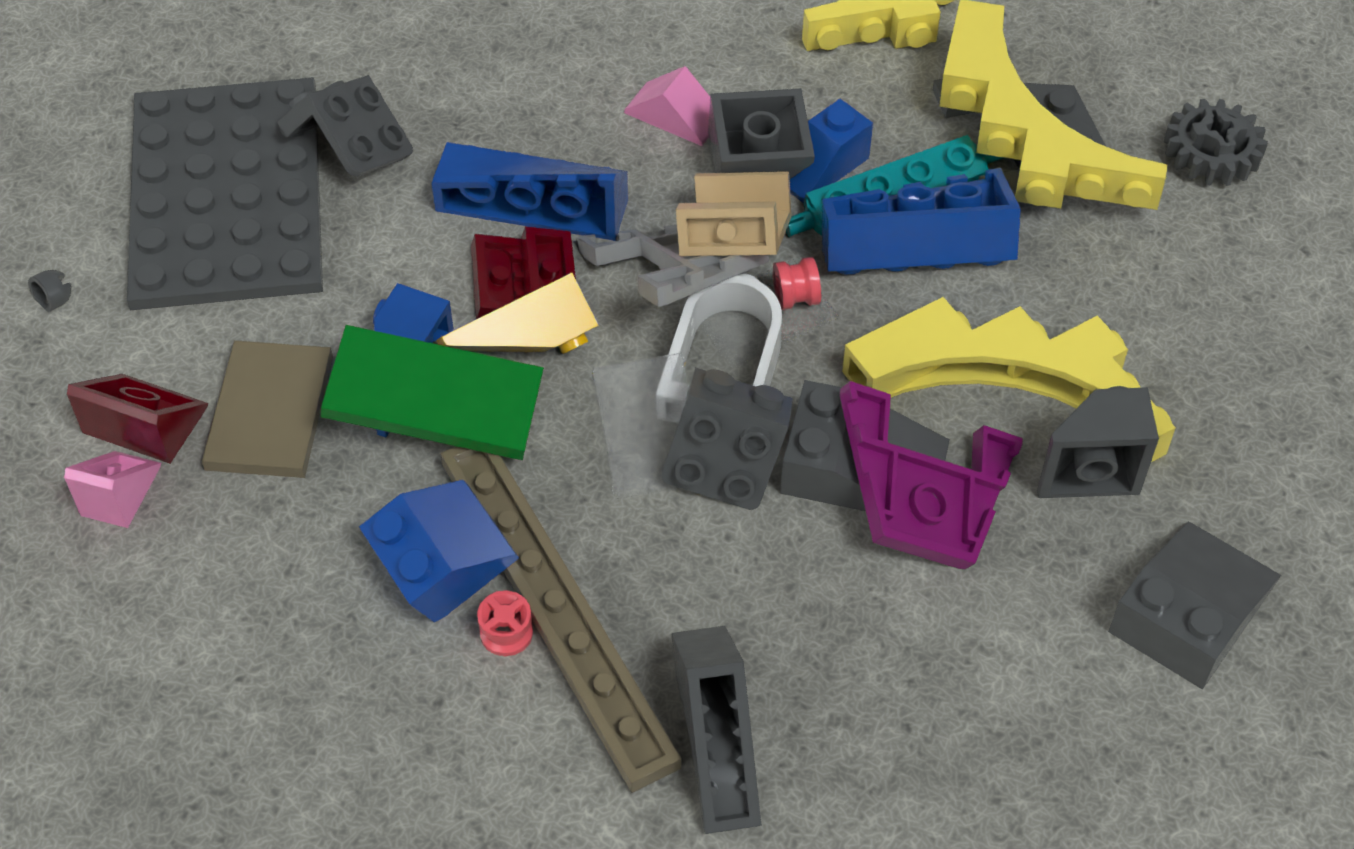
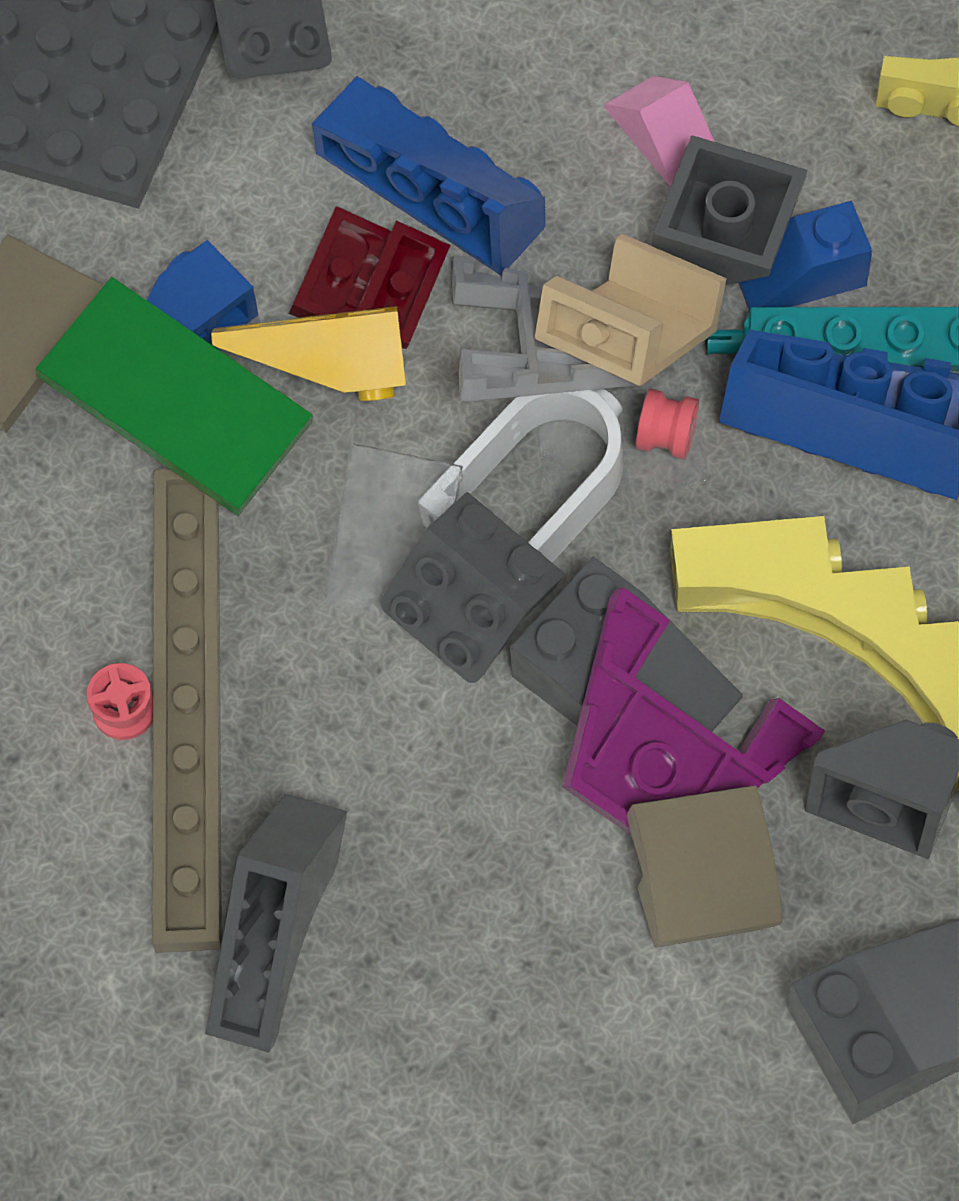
camera: 30 degrees right, 10 degrees up
(438, 546) = (89, 582): blue slope -> none
(1002, 556) = (705, 866): none -> dark tan slope

